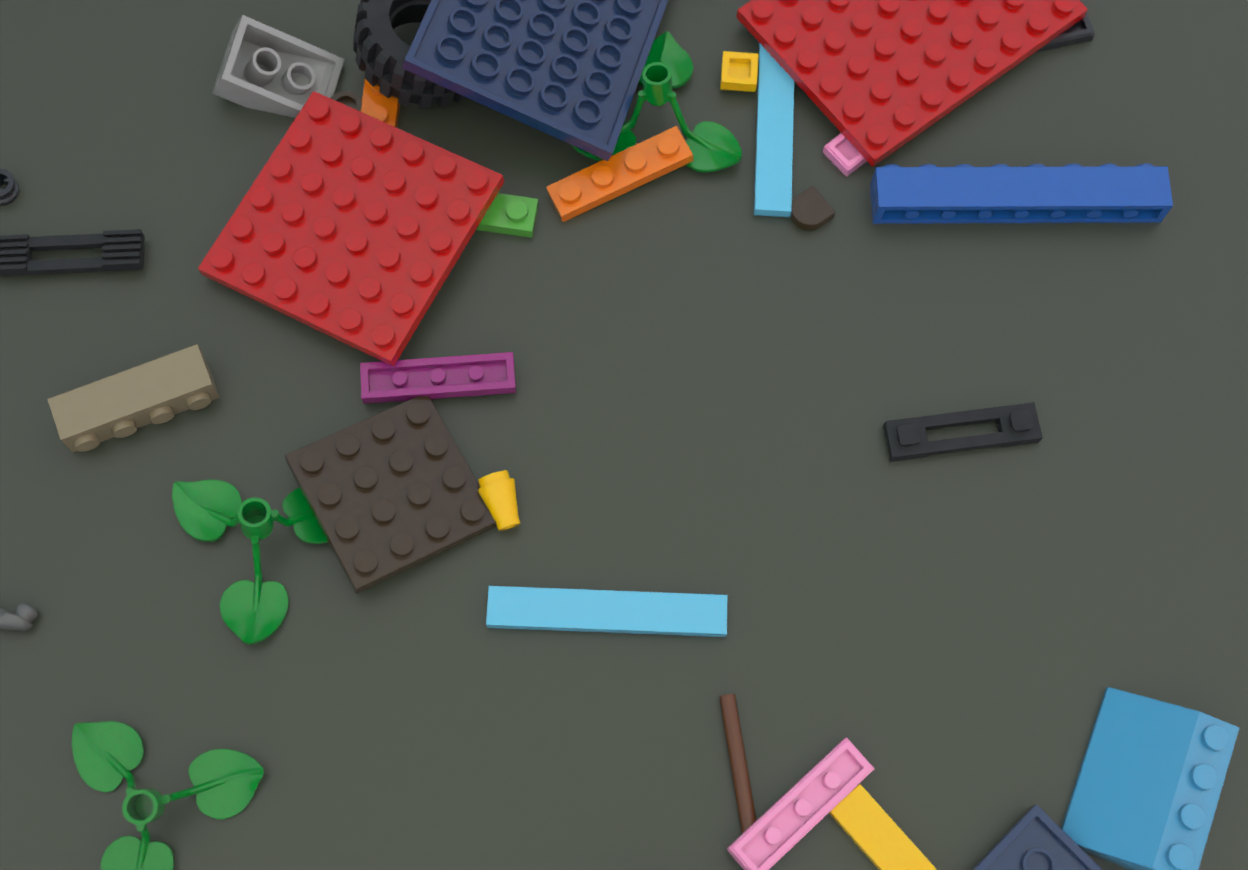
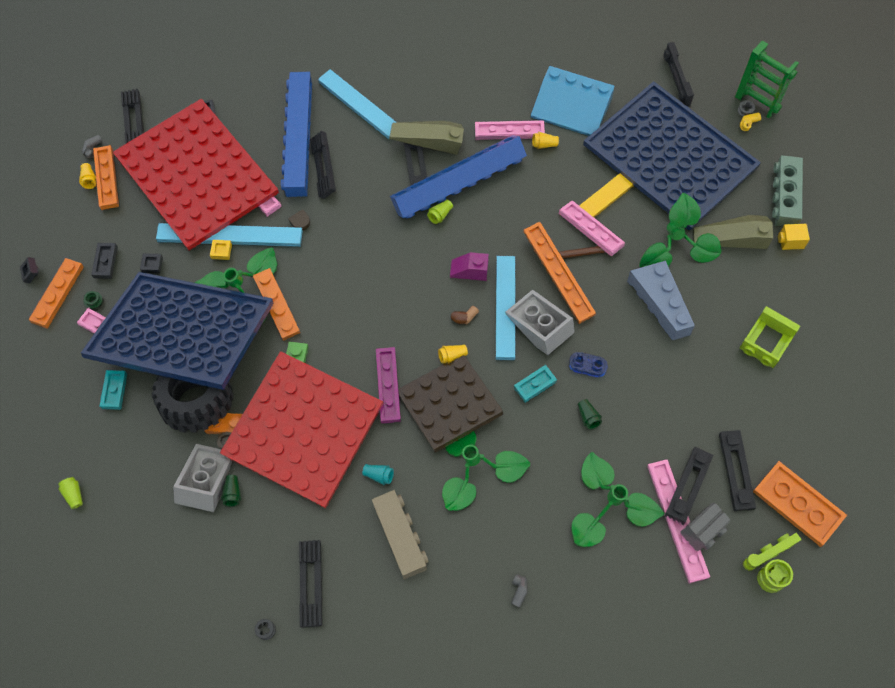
camera: 85 degrees left, 5 degrees down
(248, 118) = (231, 491): none -> dark green cone
(257, 364) = (380, 473): none -> teal cone
(348, 772) = (590, 416): none -> dark green cone
(424, 663) = (535, 383): none -> teal plate
(466, 779) = (587, 365): none -> clear blue plate
(561, 678) = (541, 321): none -> light grey slope
(582, 526) = (464, 317): none -> arm
(681, 725) = (559, 272): none -> orange plate
(698, 540) = (470, 266): none -> magenta slope
(835, 478) = (439, 212): none -> lime cone
(923, 519) = (458, 176): none -> blue brick
(986, 237) = (326, 183): none -> black container
(1032, 463) = (435, 135): none -> olive wedge
(1034, 713) = (543, 140): none -> yellow cone
(1062, 638) = (505, 129): none -> bright pink tile
(1107, 316) = (357, 102): none -> medium azure tile

